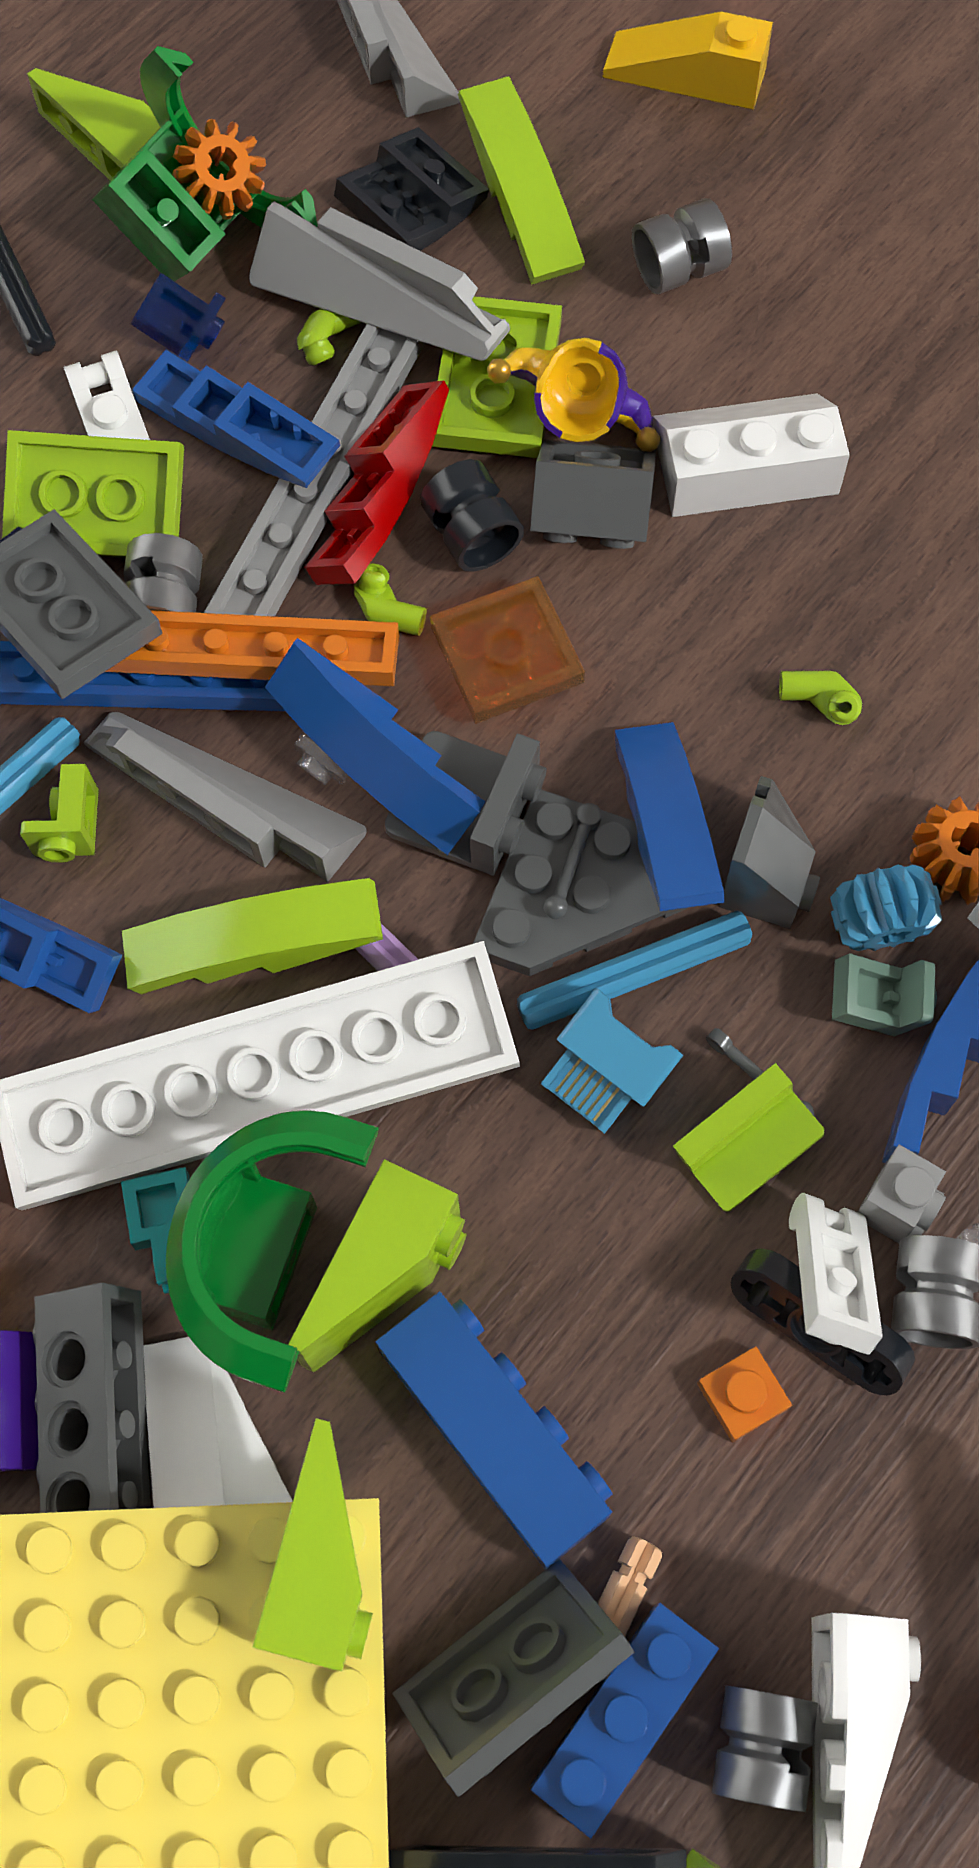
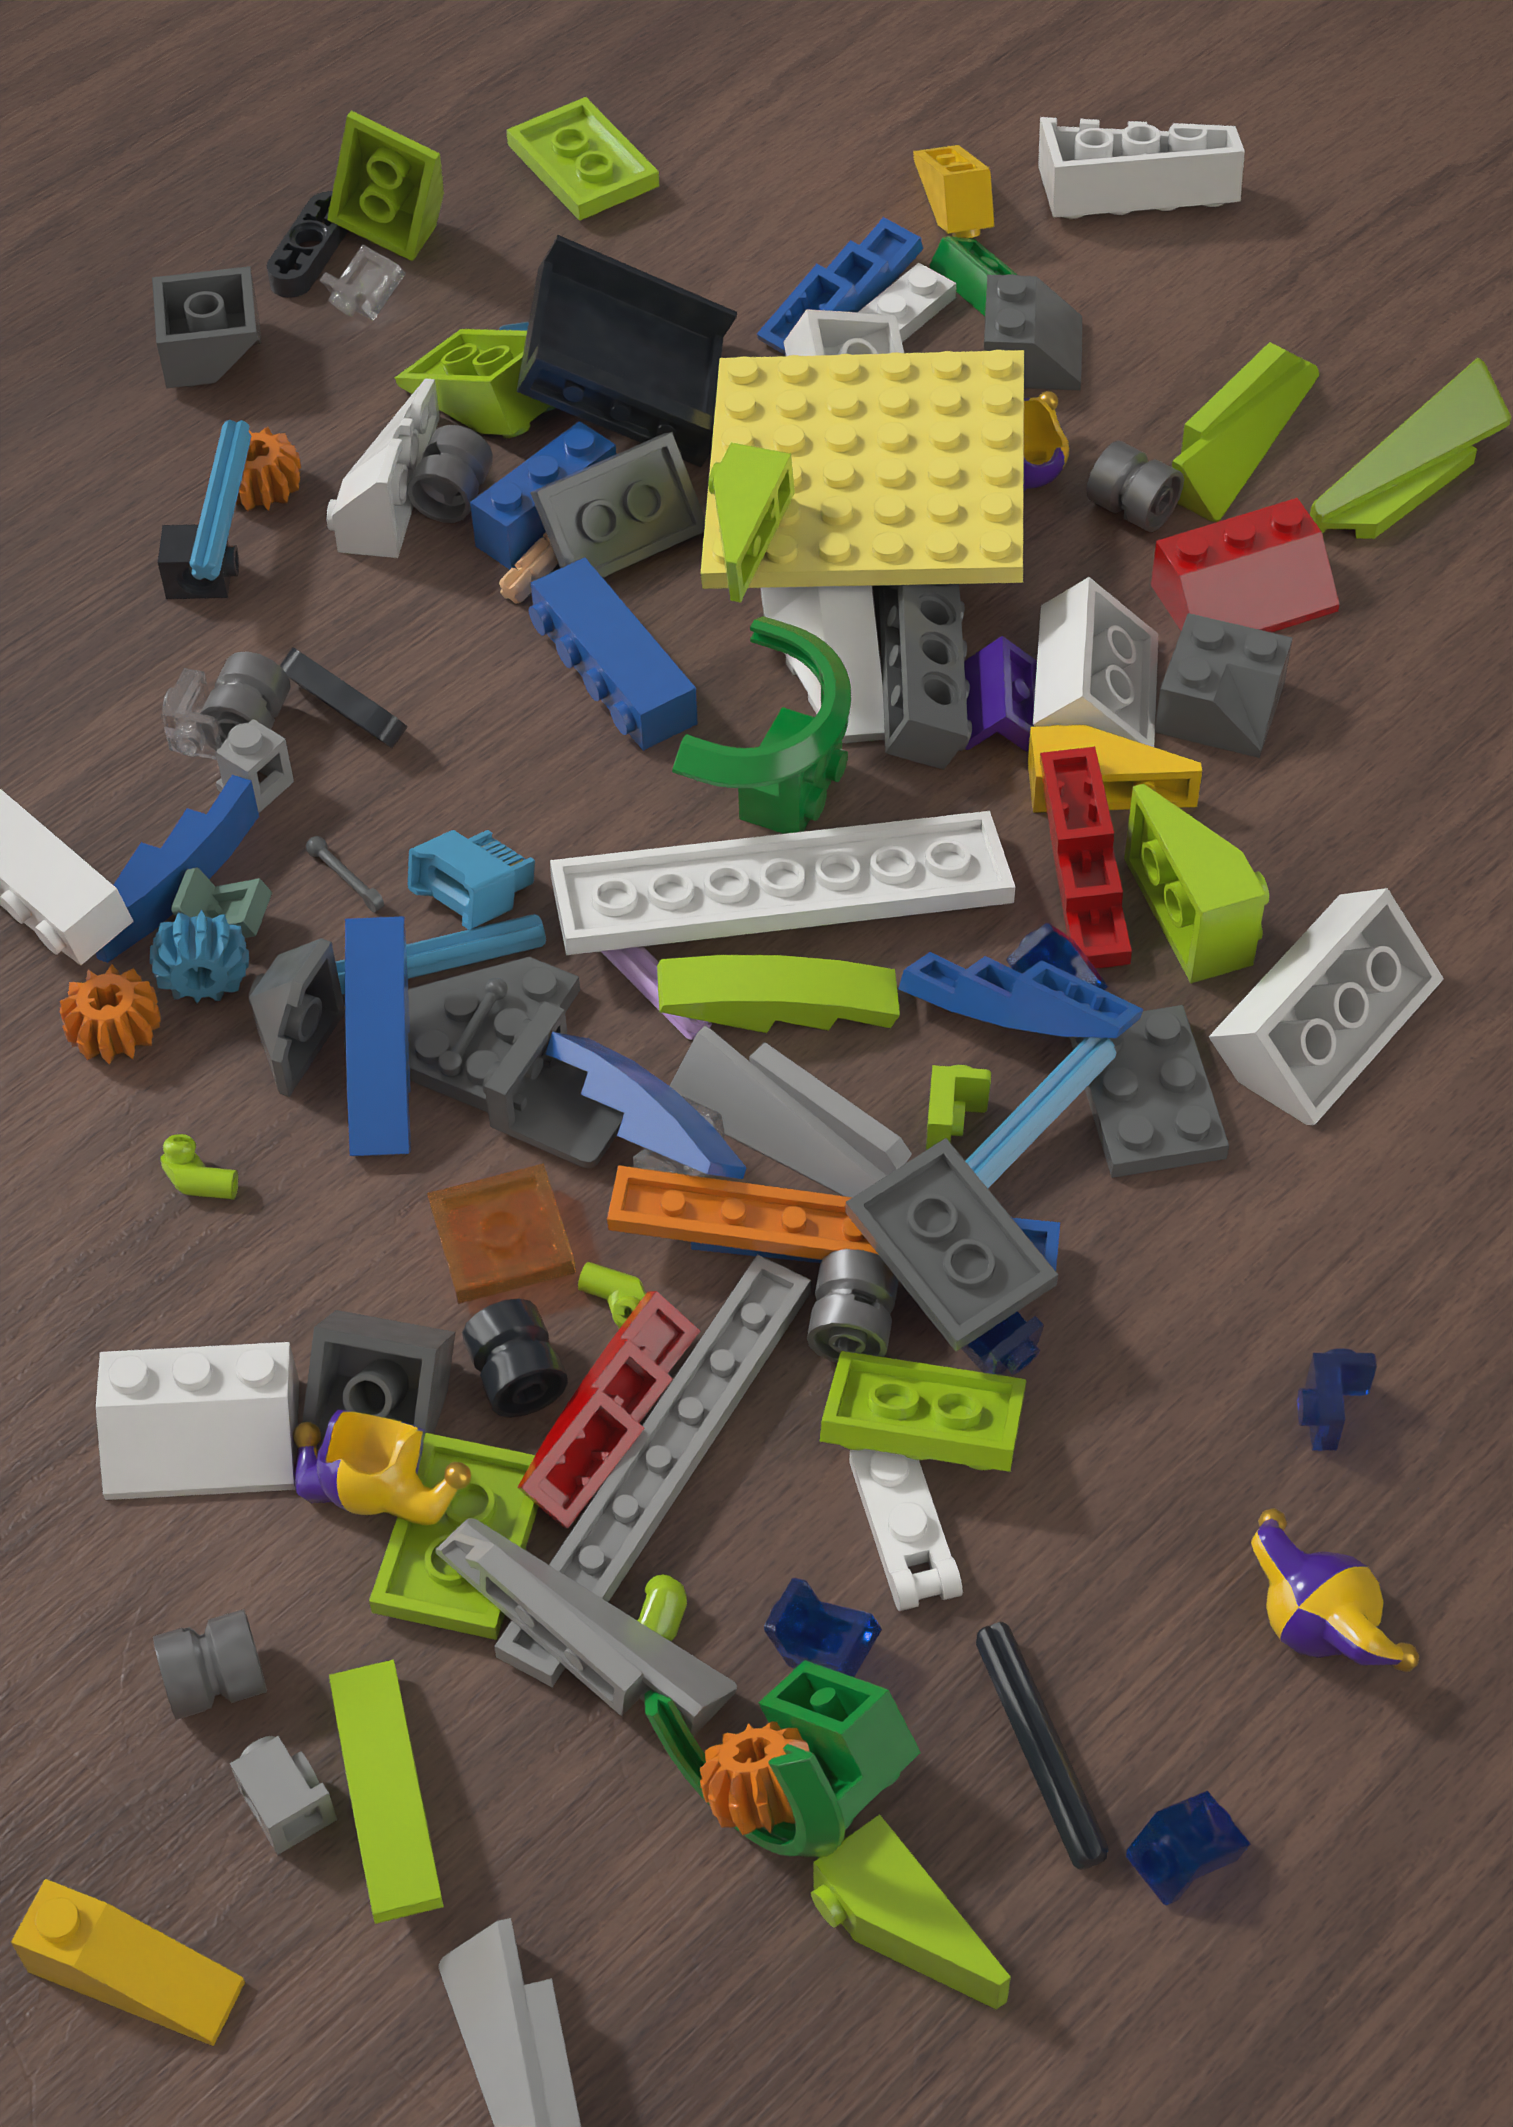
camera: 175 degrees left, 15 degrees down
(149, 1212) = (864, 796): teal plate -> none
(236, 419) = (762, 1494): blue slope -> none
(383, 1261) = (707, 702): lime slope -> none
(411, 190) = (524, 1805): black slope -> none
(601, 168) = (282, 1792): none -> light grey brick
(744, 1394) = (414, 672): orange plate -> none
(749, 1139) = (370, 821): lime panel -> none
(836, 1274) = (323, 700): white plate -> none

